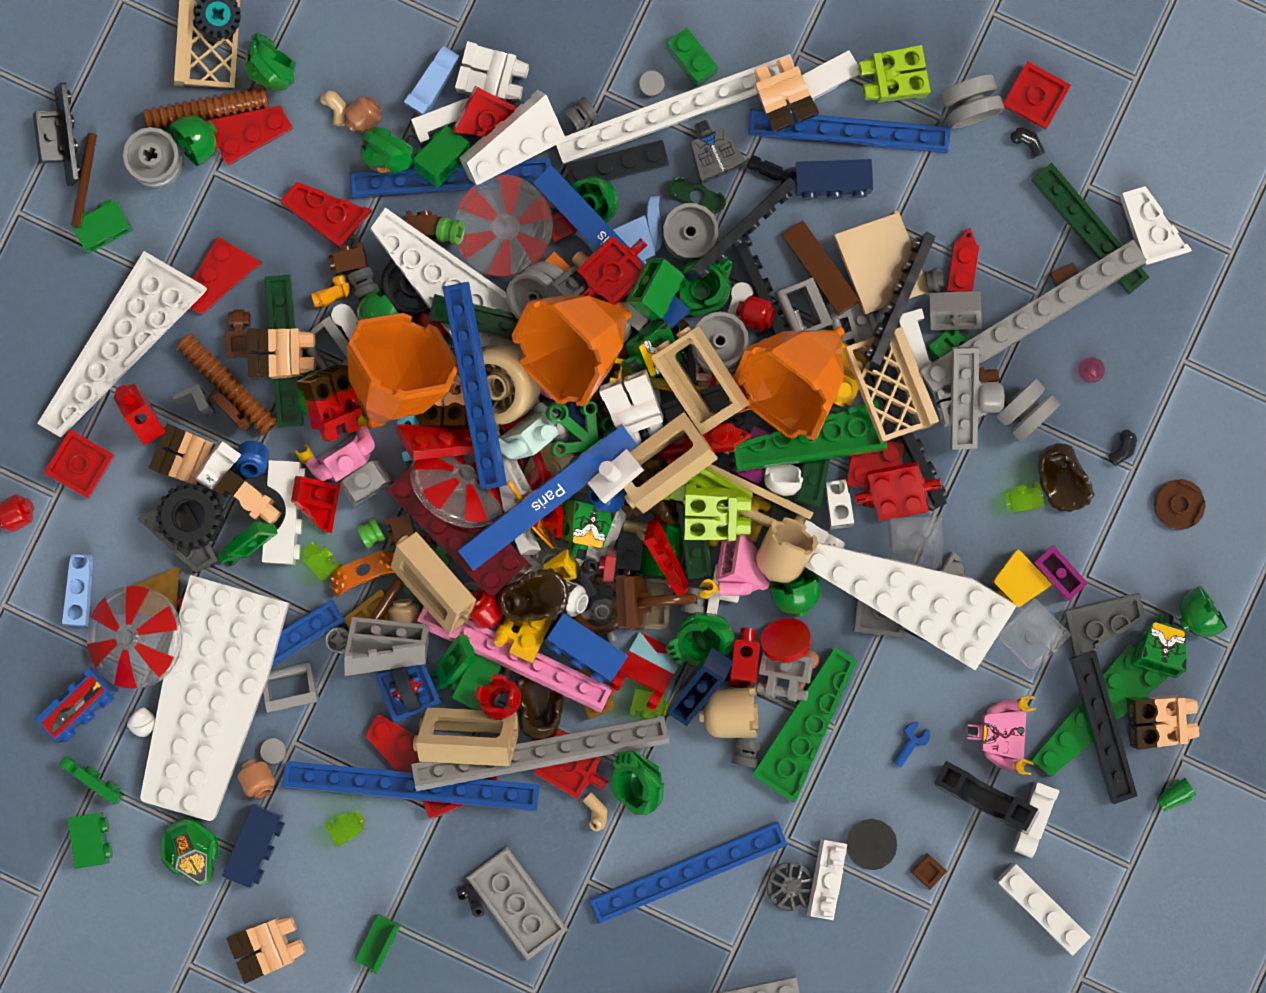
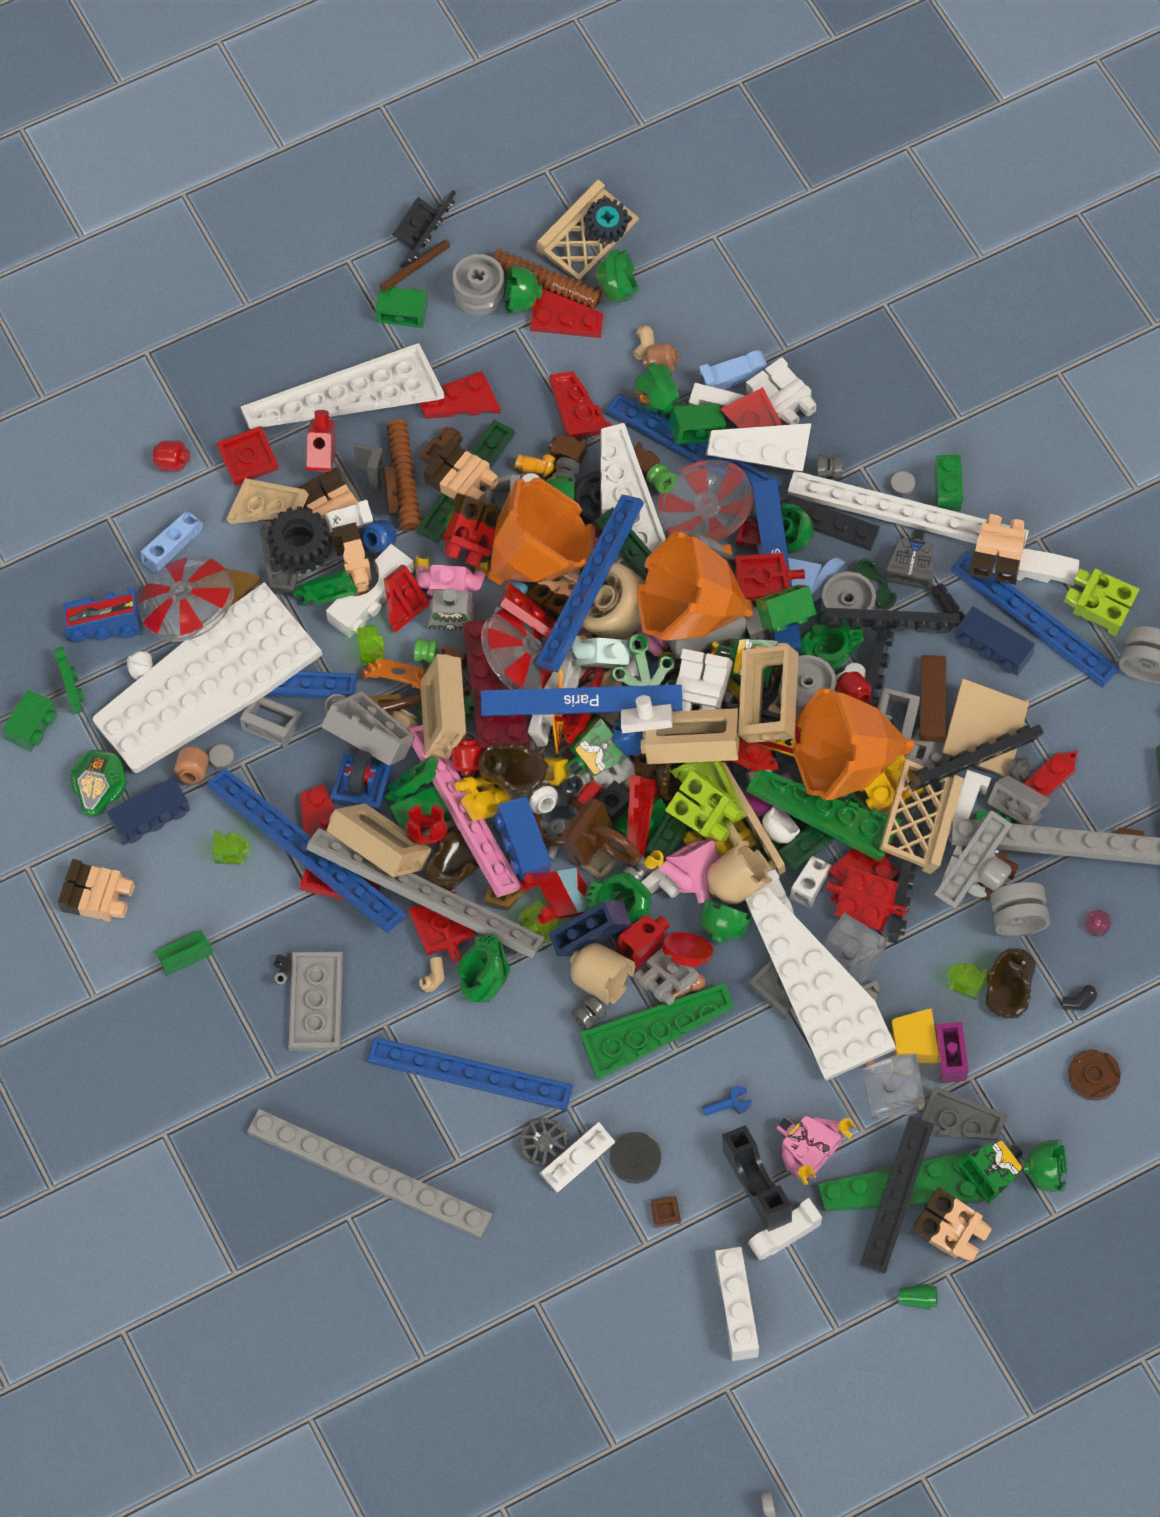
camera: 40 degrees right, 20 degrees down
(130, 497) = (264, 501): none -> tan wing

